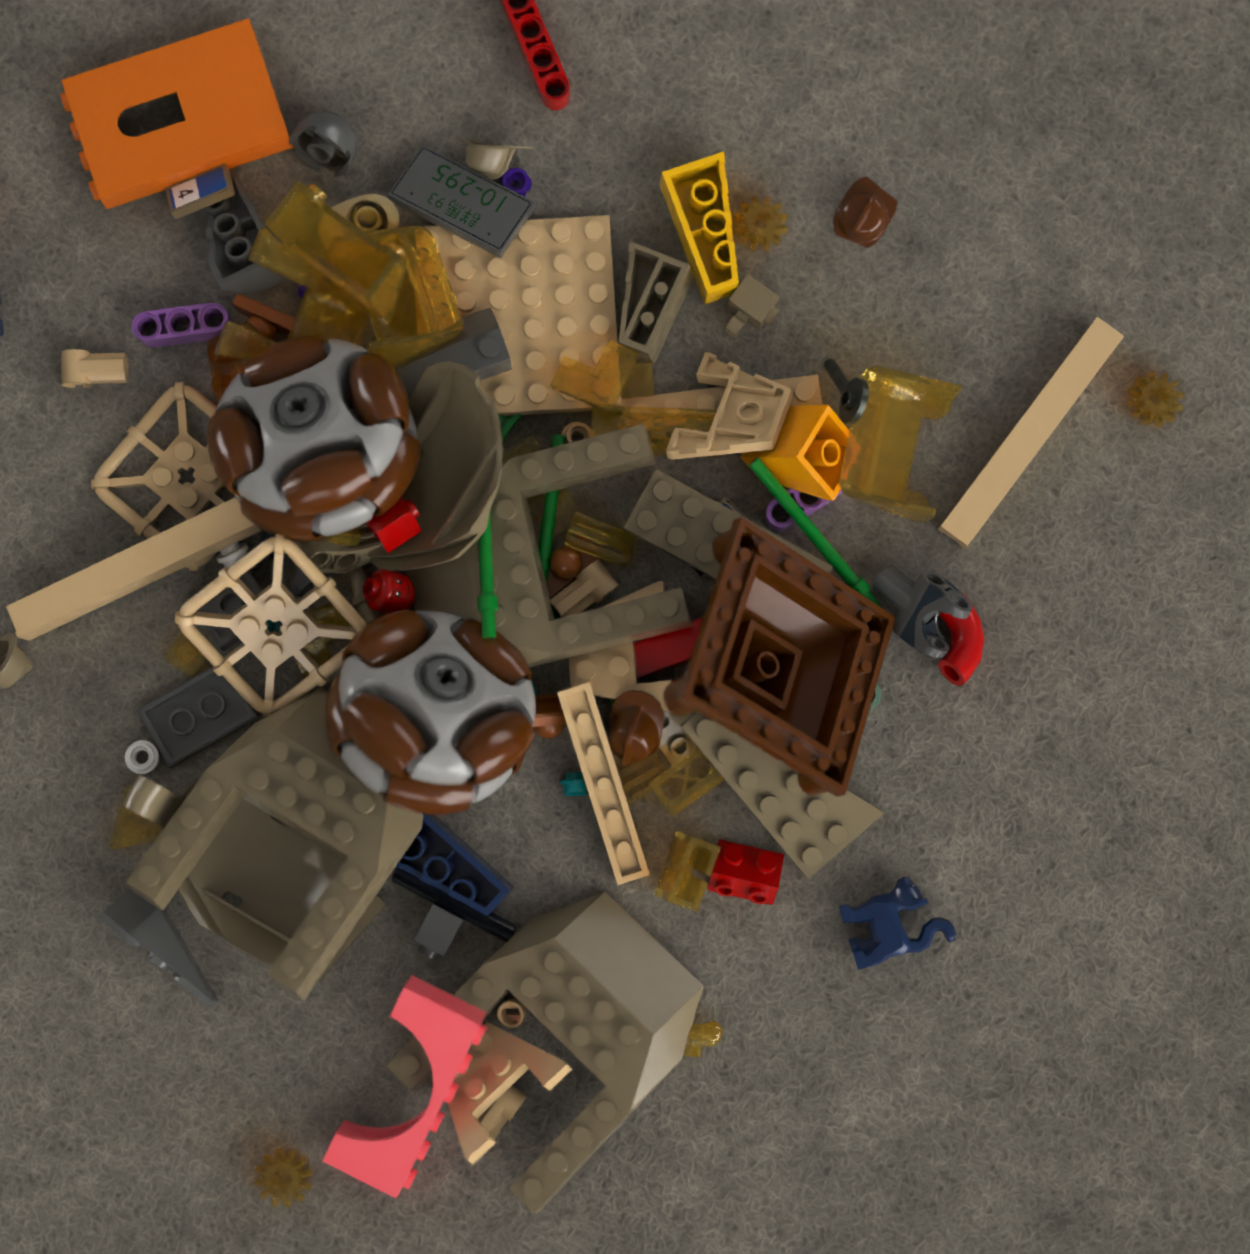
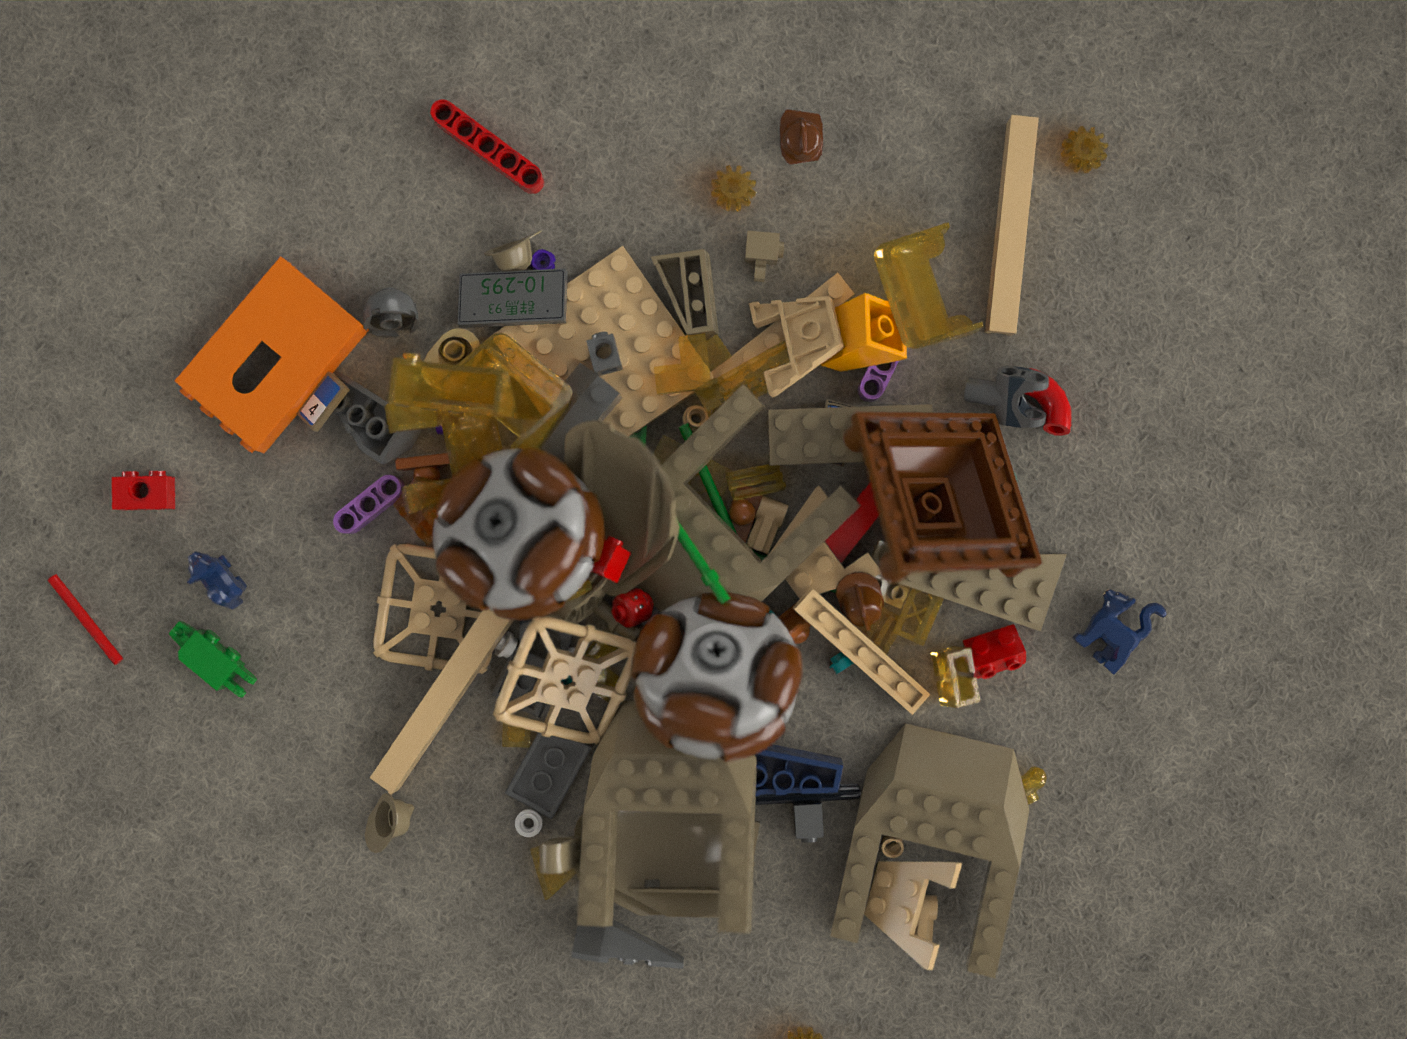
camera: 25 degrees left, 5 degrees up
(84, 368) = (322, 574): tan piece -> none
(446, 1031) = (867, 993): coral arch -> none
(515, 325) = (607, 365): none -> dark grey brick
(703, 220) = (694, 212): yellow wedge -> none
(810, 530) = (951, 406): green bar -> none
(853, 393) = (877, 275): pearl dark grey piece -> none

